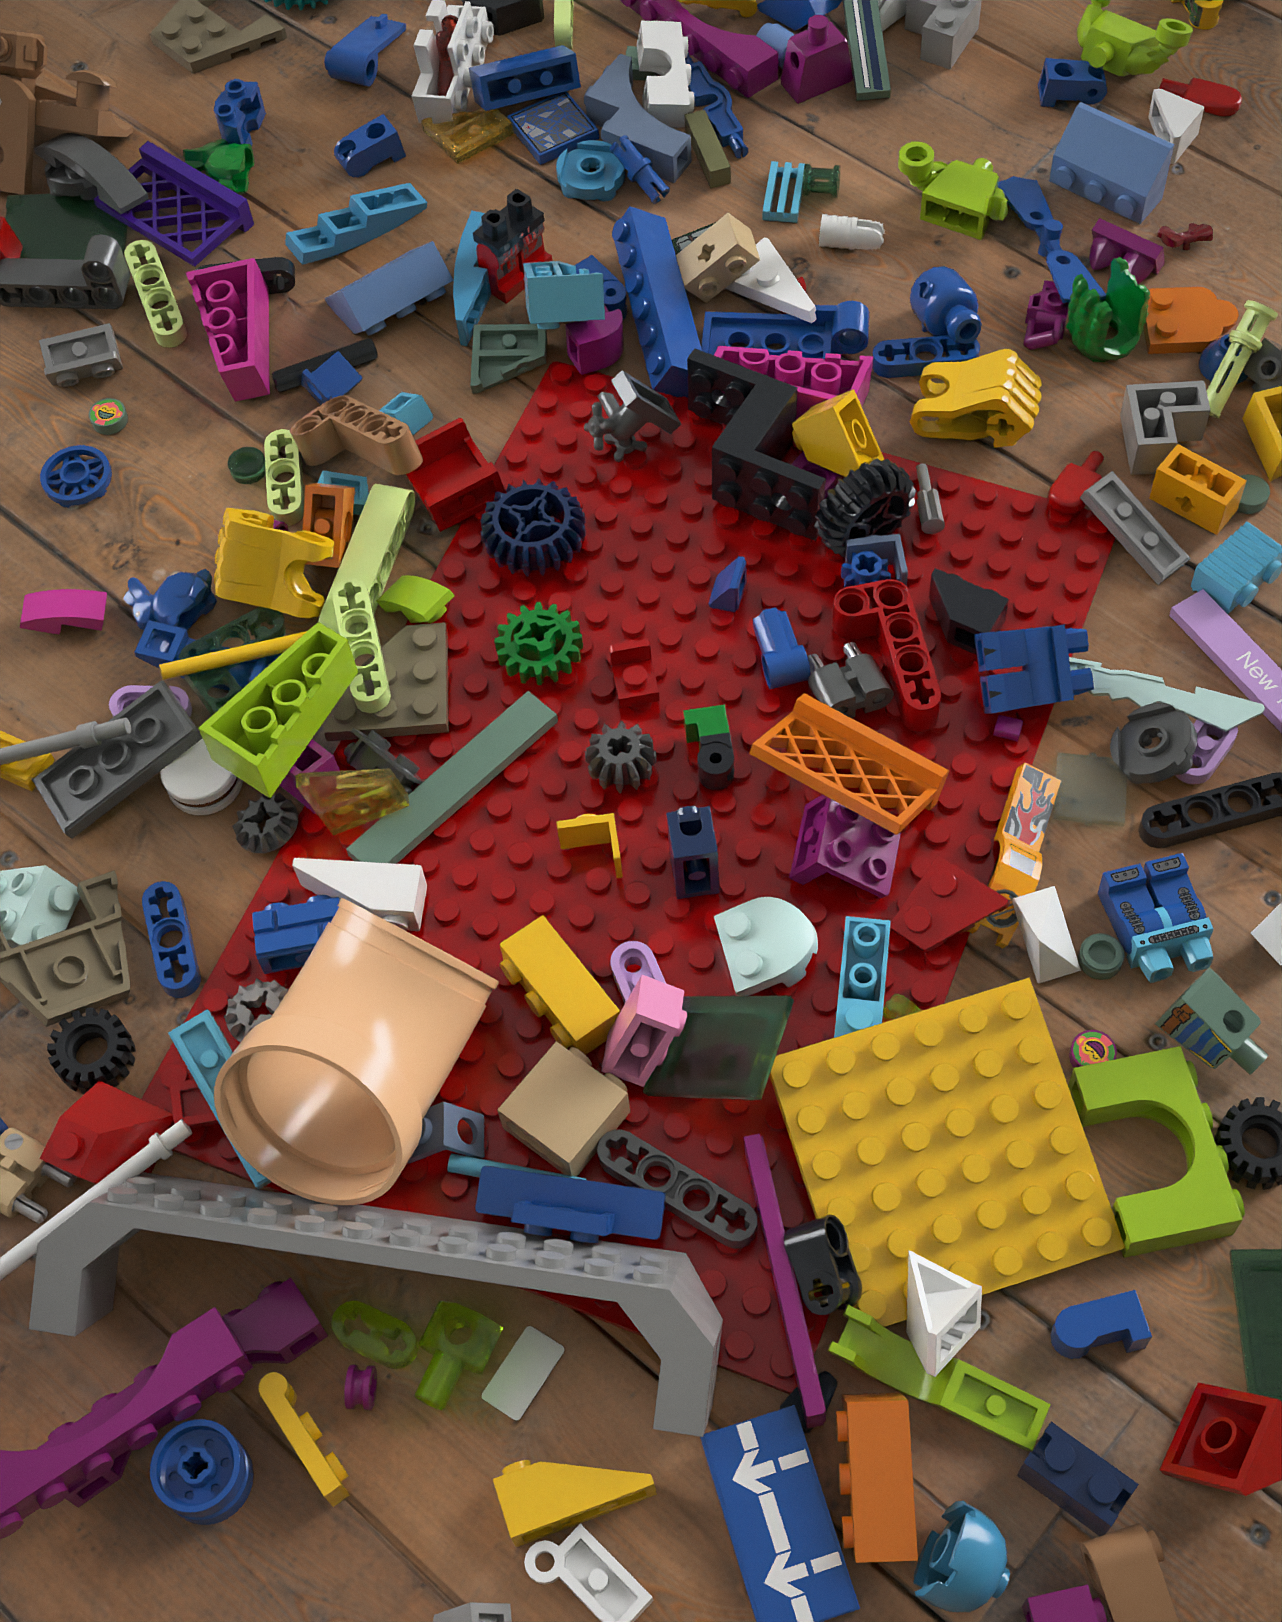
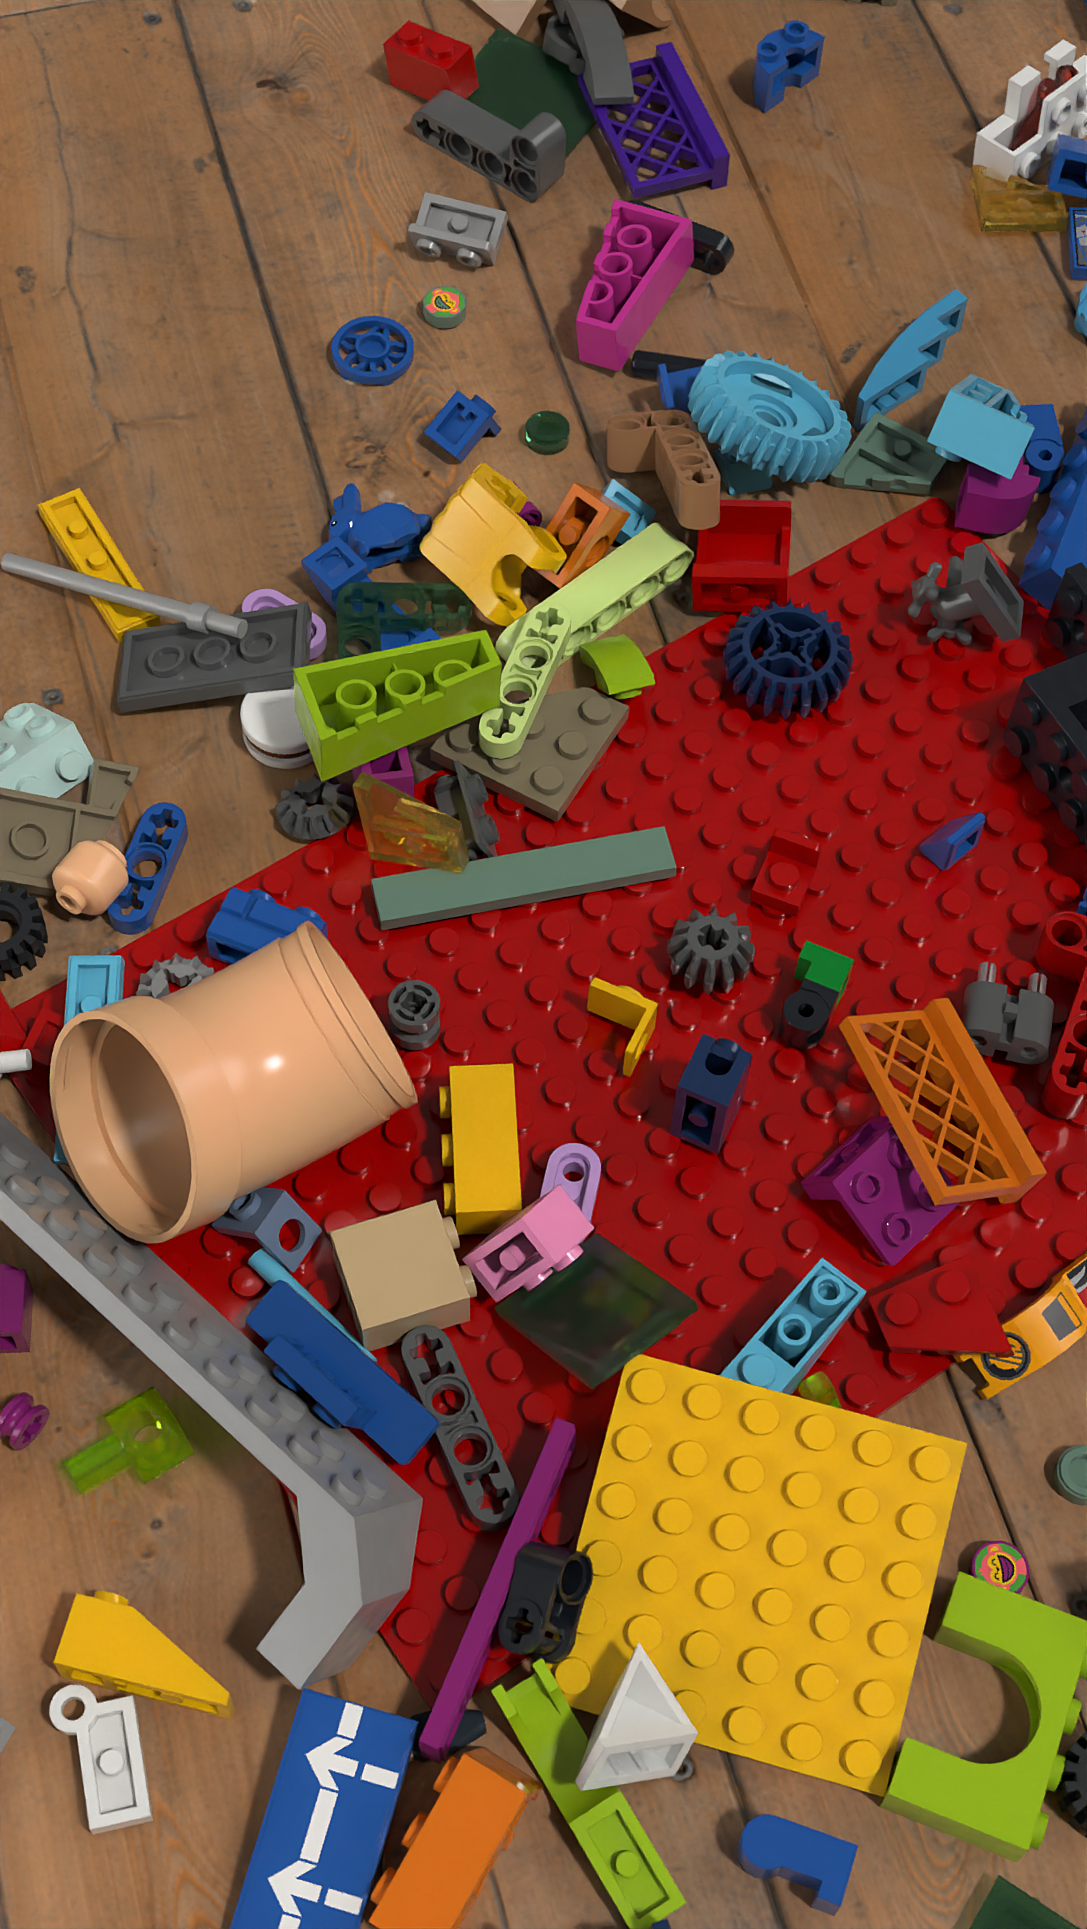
camera: 25 degrees right, 0 degrees up
(74, 607) = (259, 472): dark pink slope -> none
(137, 969) = (90, 877): none -> light nougat head
(155, 293) = (576, 205): yellowish green beam -> none
(182, 492) = (462, 425): none -> blue bracket
(224, 163) = (735, 106): green animal -> none
(228, 656) = (383, 615): yellow bar -> none
(293, 488) = (573, 448): yellowish green beam -> none
(356, 55) = (951, 60): blue door -> none
(365, 219) = (844, 240): dark azure slope -> none
(369, 146) = (897, 165): blue leg -> none
(379, 1324) = (60, 1385): clear neon green beam -> none
(383, 889) = (366, 936): white slope -> none
(391, 290) = (818, 329): medium blue slope -> none
(404, 366) = (769, 416): none -> medium azure gear
(445, 934) = (408, 1025): none -> dark grey wheel
(508, 241) = (971, 341): hips -> none
(523, 1373) = (186, 1512): white sticker -> none
(539, 643) = (709, 783): green gear -> none
(766, 944) = (725, 1236): light aqua slope -> none
(781, 656) = (956, 945): blue piece -> none
(1046, 934) = (1035, 1413): white slope -> none

